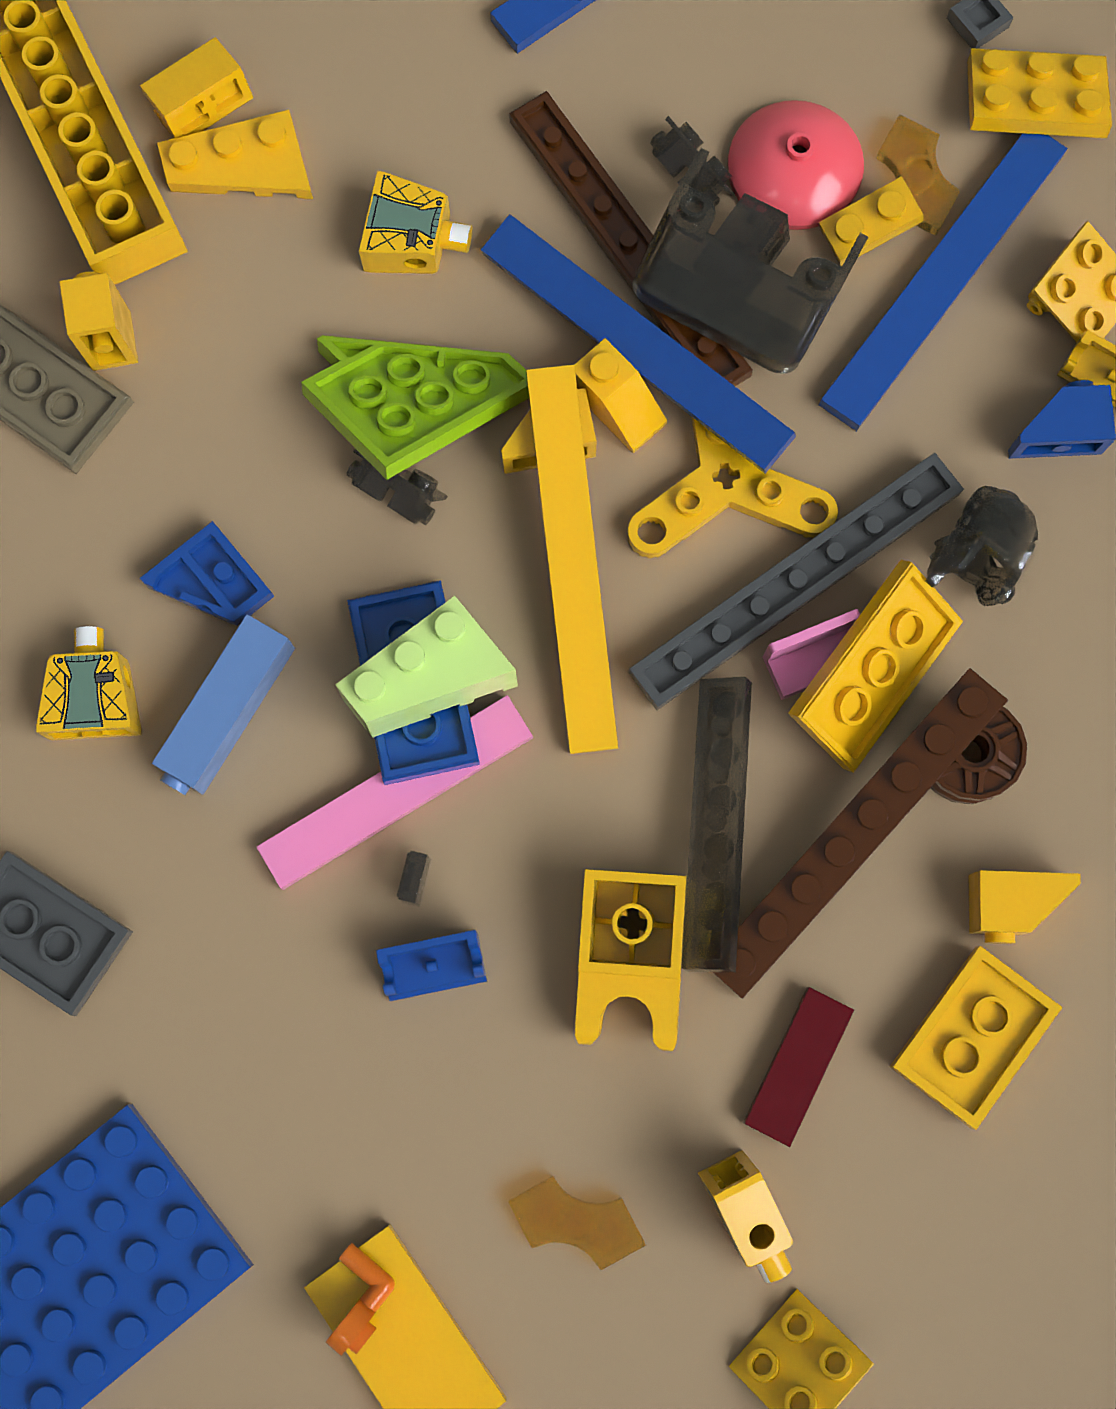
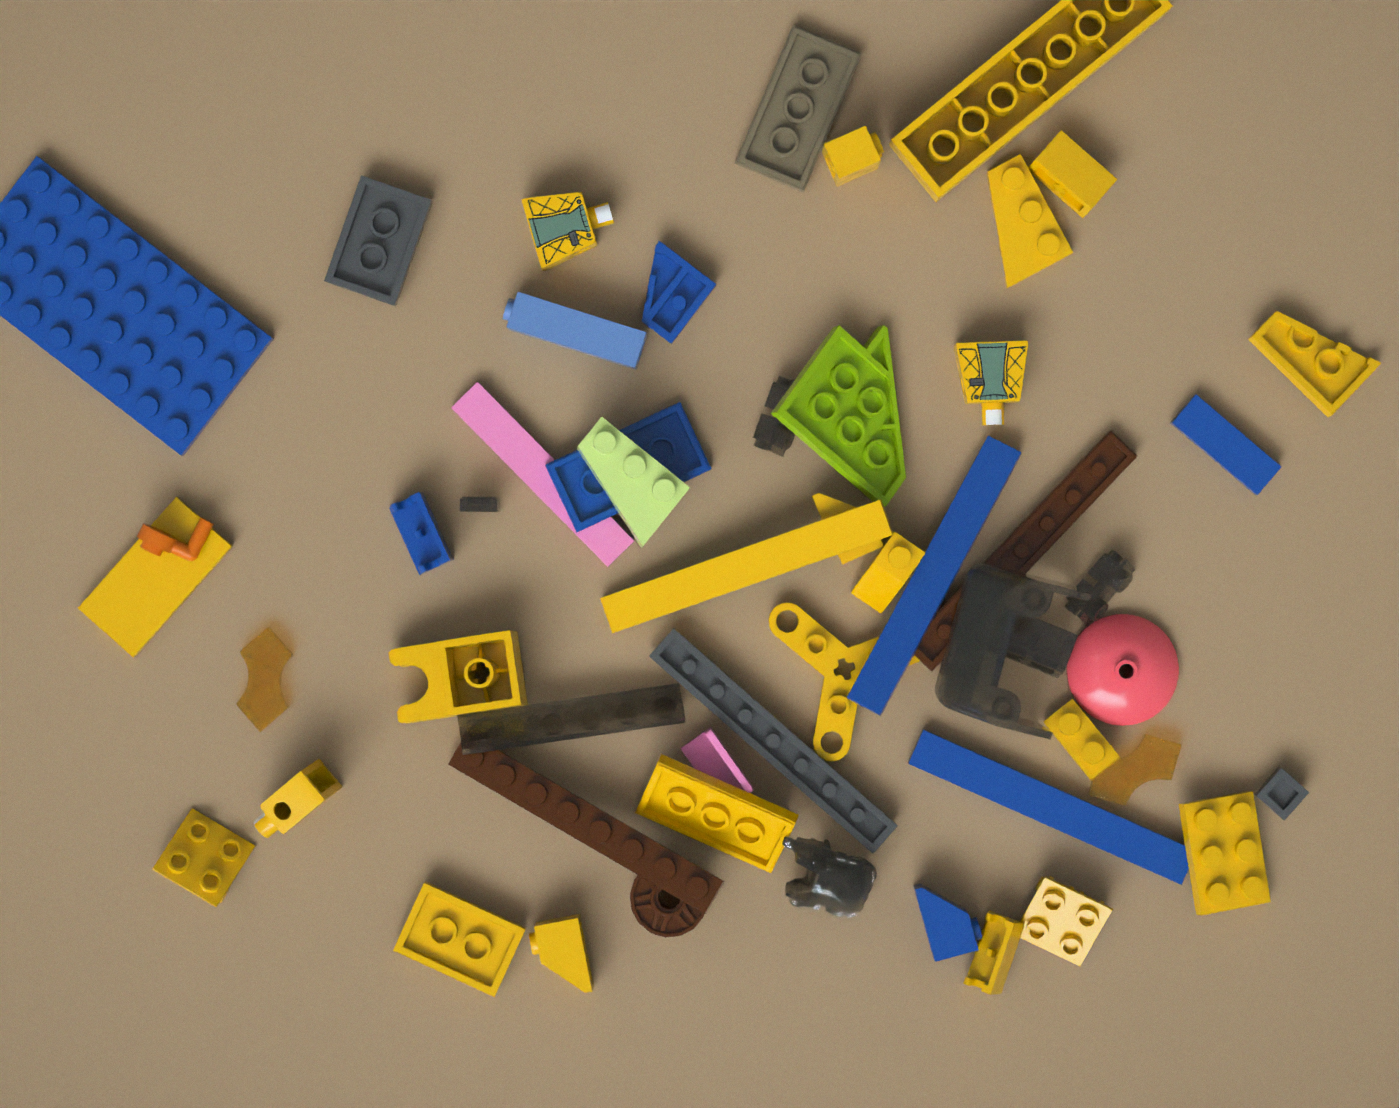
camera: 70 degrees right, 10 degrees up
(798, 1066) = (410, 815): dark red tile -> none

